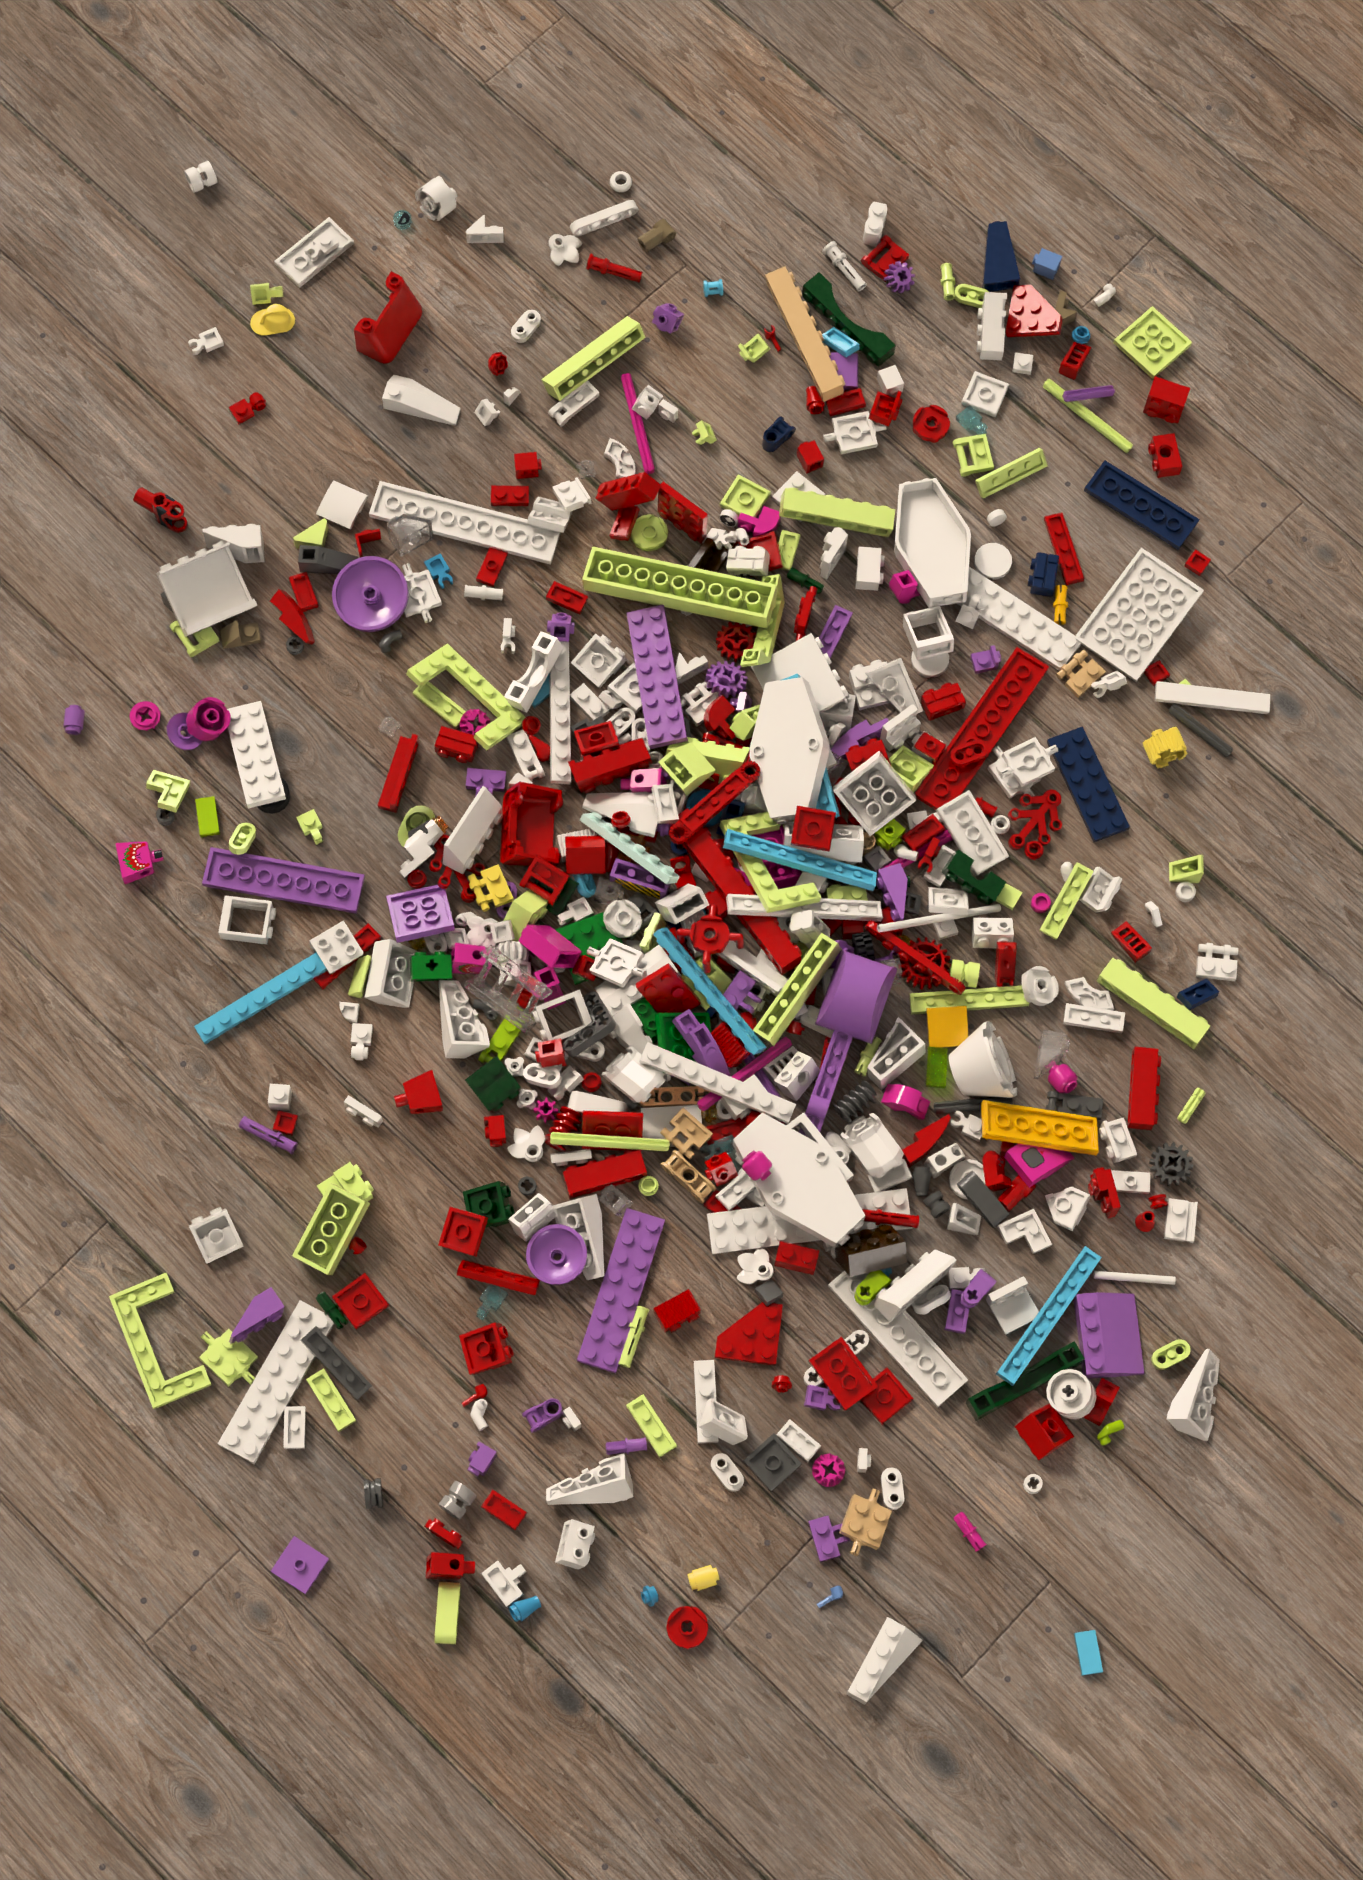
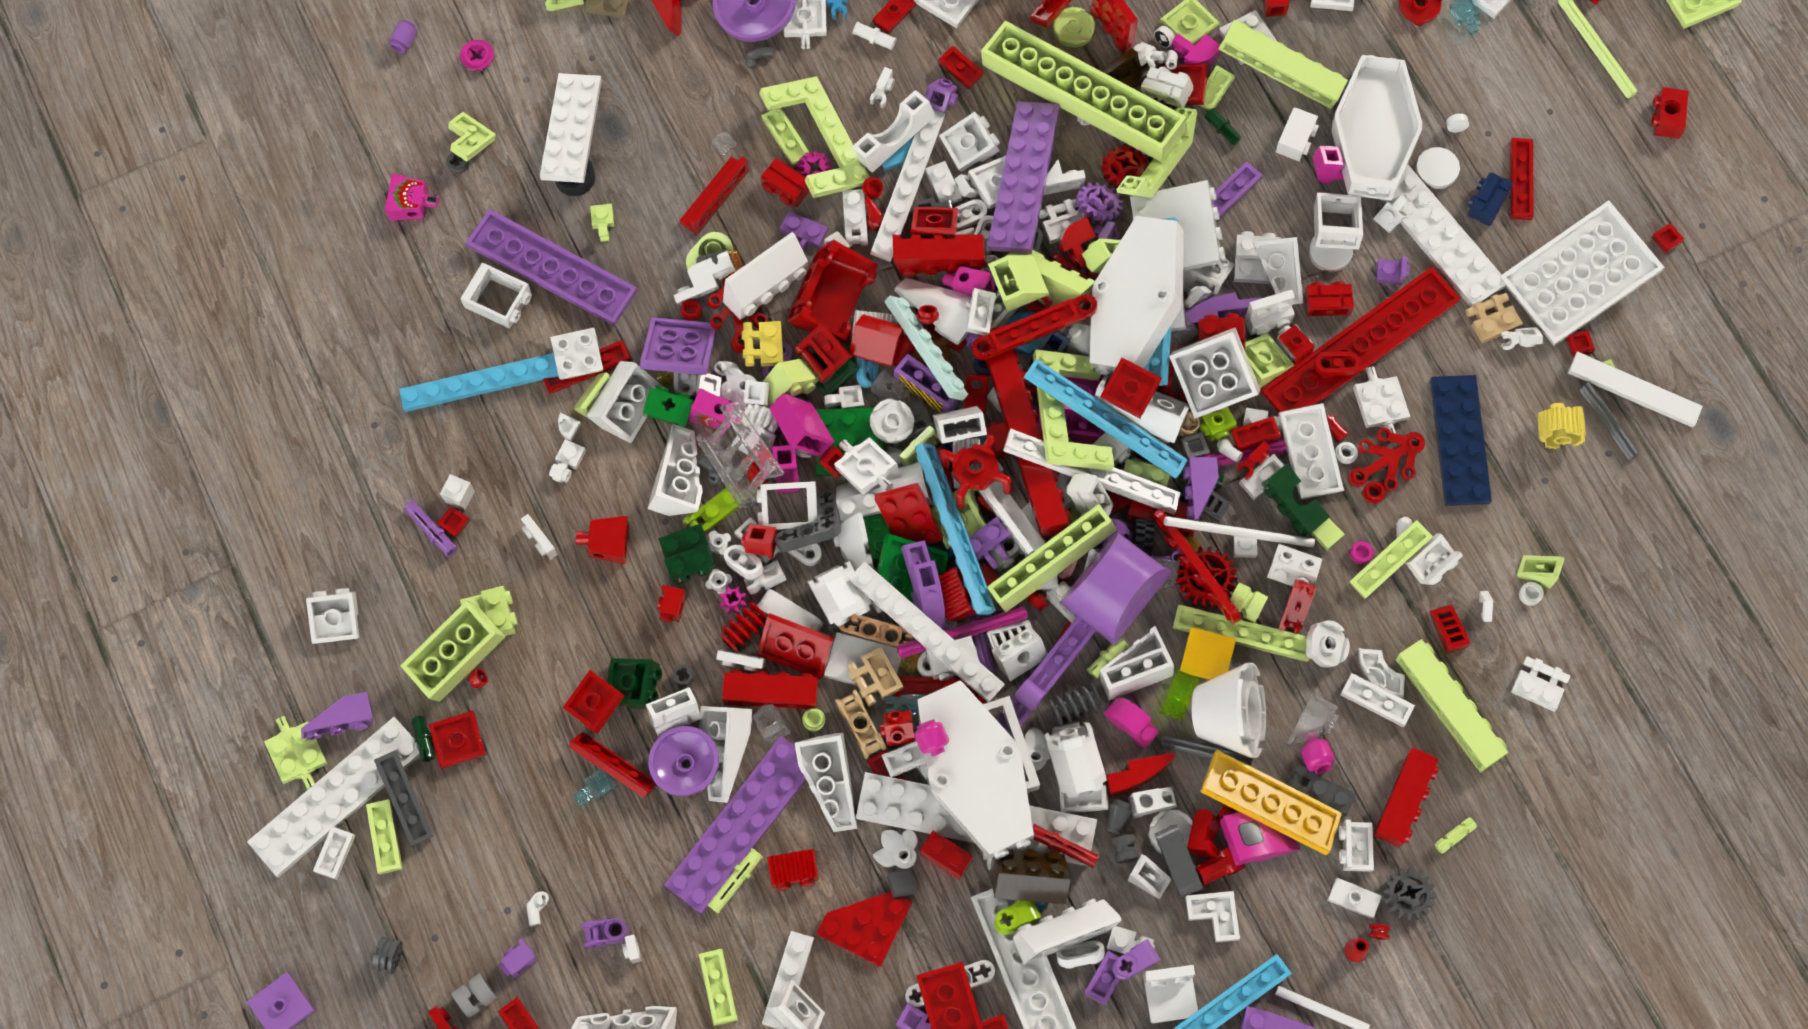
camera: 25 degrees right, 0 degrees up
(158, 1390) = (209, 761): yellowish green plate -> none
(174, 728) = (517, 76): medium lavender dish -> none
(207, 816) = (500, 177): lime tile -> none
(208, 719) = (532, 87): dark pink brick -> none
(242, 838) = (524, 210): yellowish green plate -> none
(299, 642) = (654, 25): dark grey bush -> none
(481, 1392) = (547, 884): red hand -> none
(486, 1348) = (570, 838): red plate -> none
(526, 1142) = (699, 628): white plate -> none
(591, 1082) = (794, 586): red plate -> none
(609, 1141) = (787, 657): yellowish green axle -> none
(626, 1446) = (681, 1000): medium lavender axle -> none
(675, 1223) = (827, 772): none -> white wedge
(781, 1383) = (878, 991): red plate -> none
(804, 613) = (1206, 164): red plate -> none
(833, 549) = (1264, 104): white plate -> none
(948, 901) = (1256, 517): white tile -> none
(971, 1127) = (1194, 774): white plate -> none
(979, 454) = (1462, 51): yellowish green plate -> none
(1011, 473) = (1490, 80): yellowish green plate -> none
(1028, 761) = (1400, 393): white plate -> none
(1060, 604) = (1497, 236): yellow pin -> none
(1067, 1207) = (1273, 902): white plate -> none
(1088, 393) = (1606, 22): medium lavender axle -> none
(1103, 1188) = (1320, 895): red plate -> none
(1141, 505) = (1625, 158): dark blue plate -> none
(1166, 400) = (1691, 53): red brick -> none
(1180, 1220) = (1398, 962): white plate -> none
(1198, 994) = (1505, 712): dark blue plate -> none

